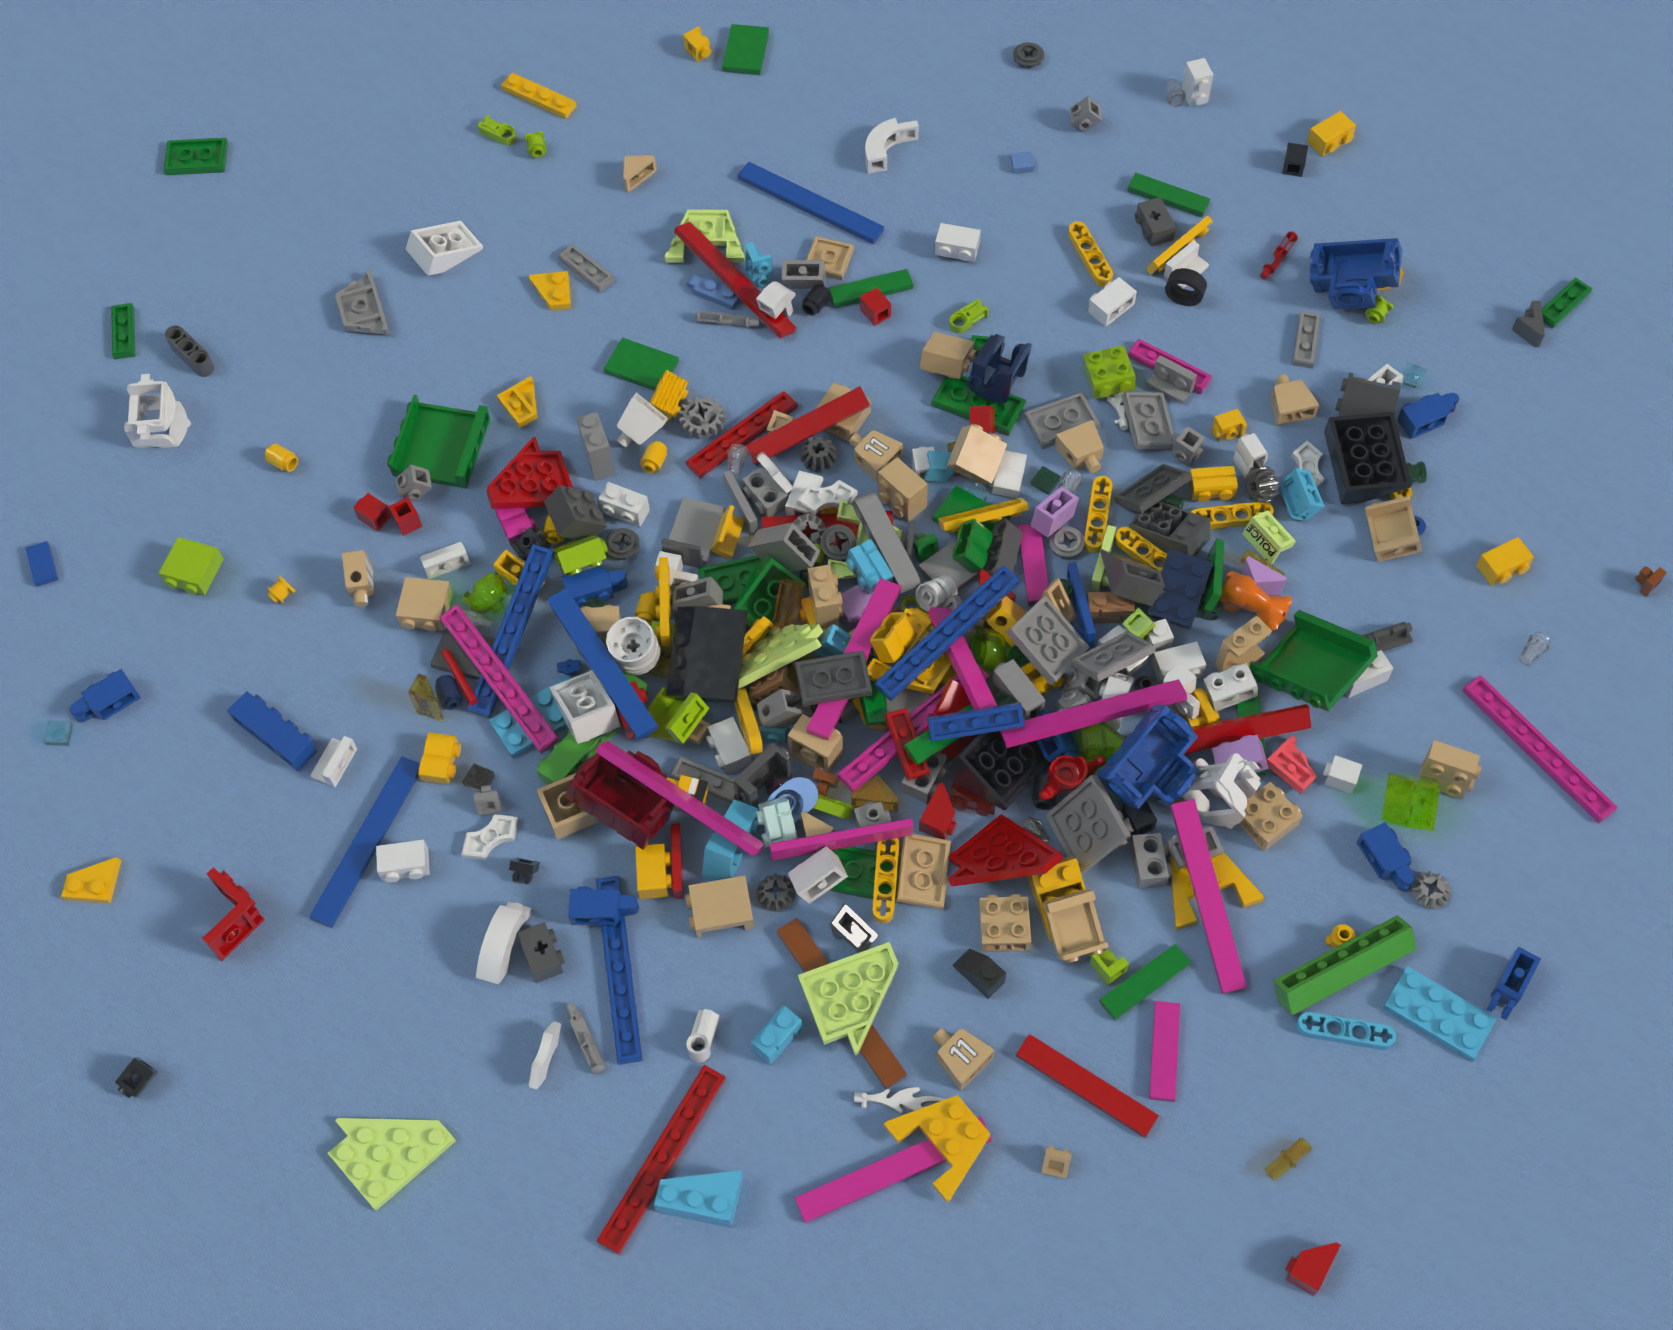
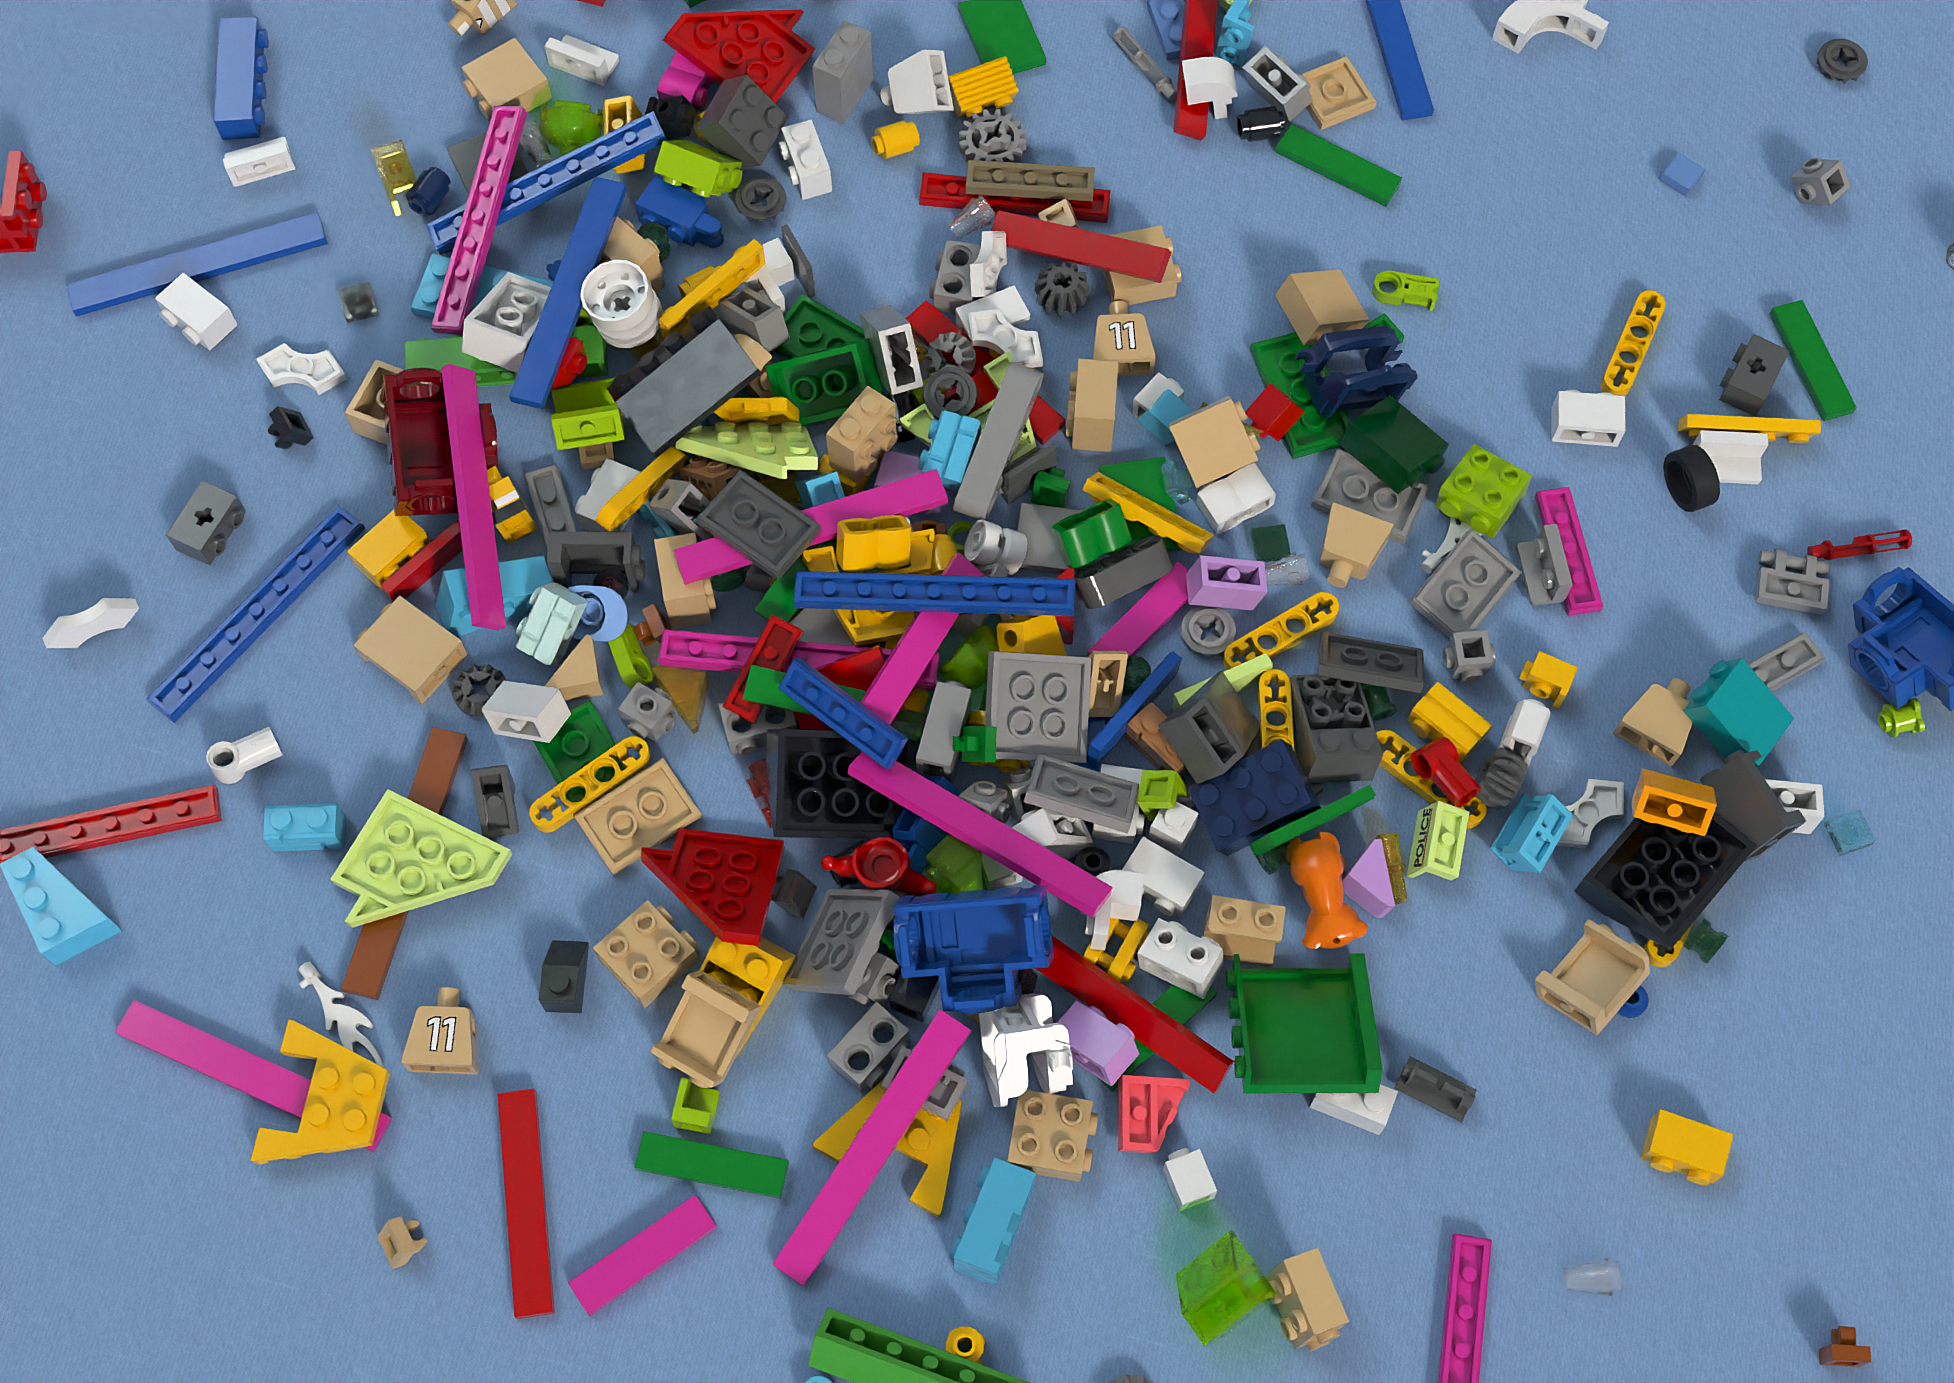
camera: 45 degrees right, 5 degrees up
(438, 758) = (344, 246): yellow brick -> none
(459, 677) = (451, 184): red bar -> none
(487, 801) = (335, 330): light grey tile -> none
(498, 941) = (176, 469): white arch -> none
(585, 1039) = (147, 647): light grey piece -> none
(599, 906) = (300, 532): blue hinge -> none
(697, 524) = (850, 252): light grey tile -> none
(727, 534) = (870, 285): yellow panel -> none
(740, 501) = (922, 265): light grey tile -> none
(744, 418) = (1030, 180): none -> dark tan plate
(788, 602) = (827, 409): clear orange panel -> none
(841, 839) = (584, 698): dark pink tile -> none
(875, 306) = (1315, 187): red brick -> none
(939, 815) = (721, 776): red slope -> none
(957, 242) = (1490, 197): white brick -> none
(1045, 679) = (977, 744): none -> green tile
(1050, 386) = (1394, 444): none -> dark green brick
(1232, 501) = (1440, 763): none -> red piece
(1275, 298) = (1790, 589): none -> light grey plate
(1290, 875) = (993, 1221): none -> medium azure wedge
(1319, 366) = (1738, 710): none -> teal brick
(1347, 422) = (1673, 802): none -> light orange brick
(1387, 855) = (1125, 1316): blue hinge -> none
(1427, 413) = (1811, 890): blue hinge -> none

